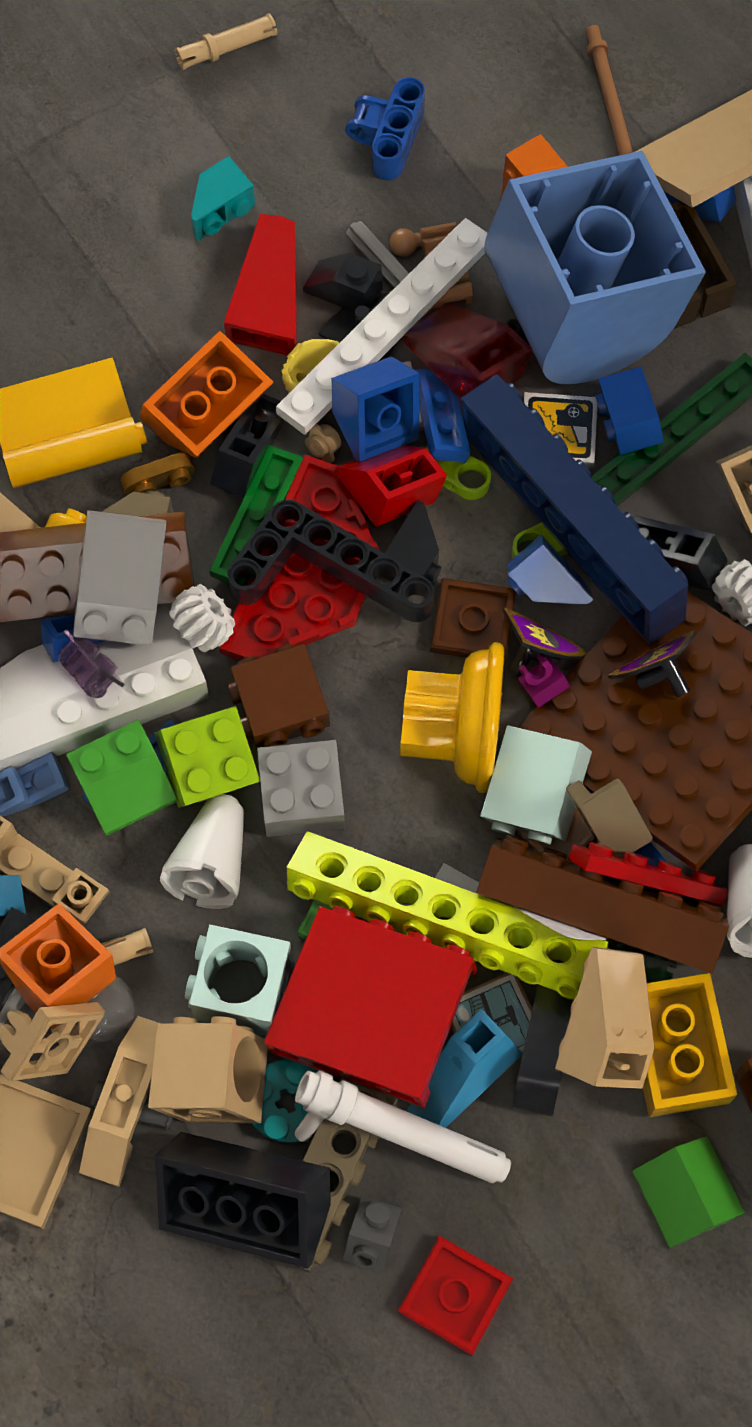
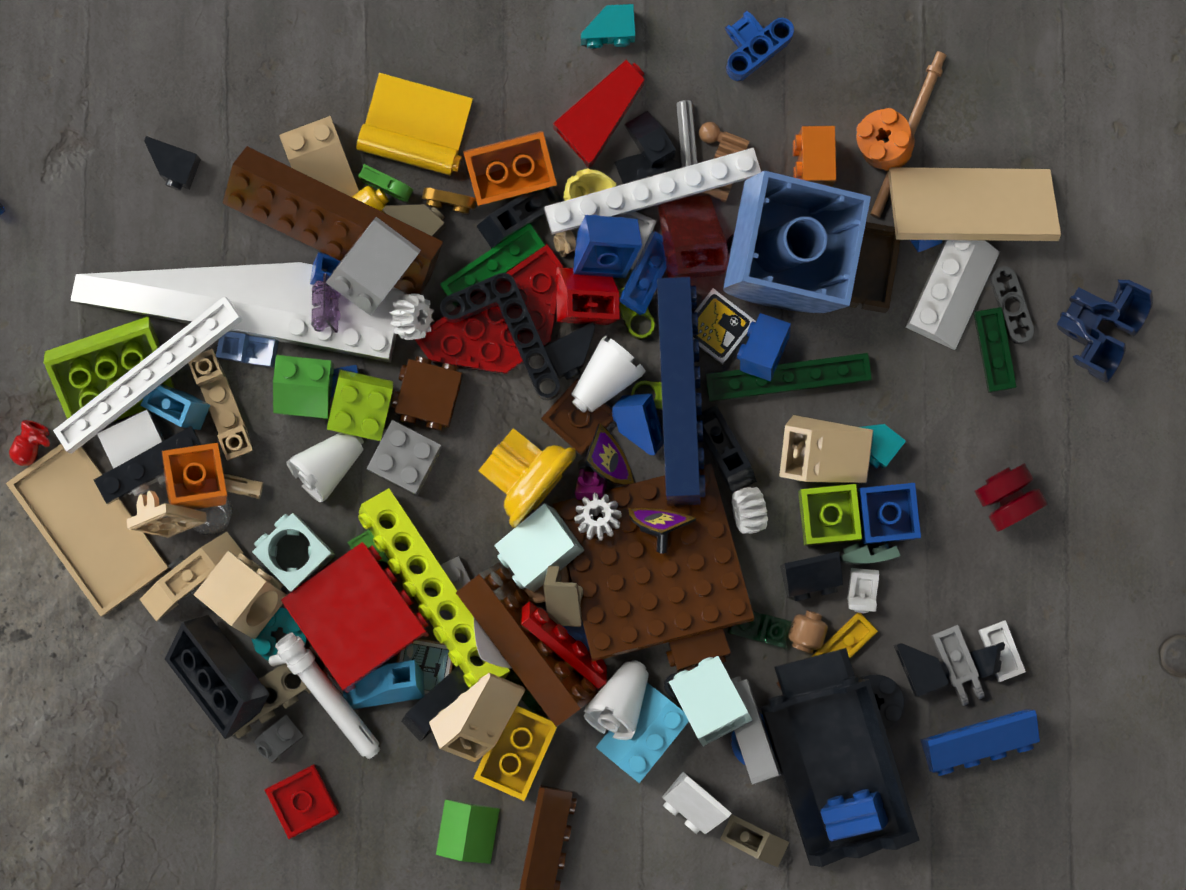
camera: 30 degrees right, 15 degrees up
(79, 498) = (388, 184): none -> bright green piece
(475, 543) = (605, 375): none -> white cone
(596, 703) = (593, 508): none -> white gear
(599, 126) = (878, 126): none -> orange brick

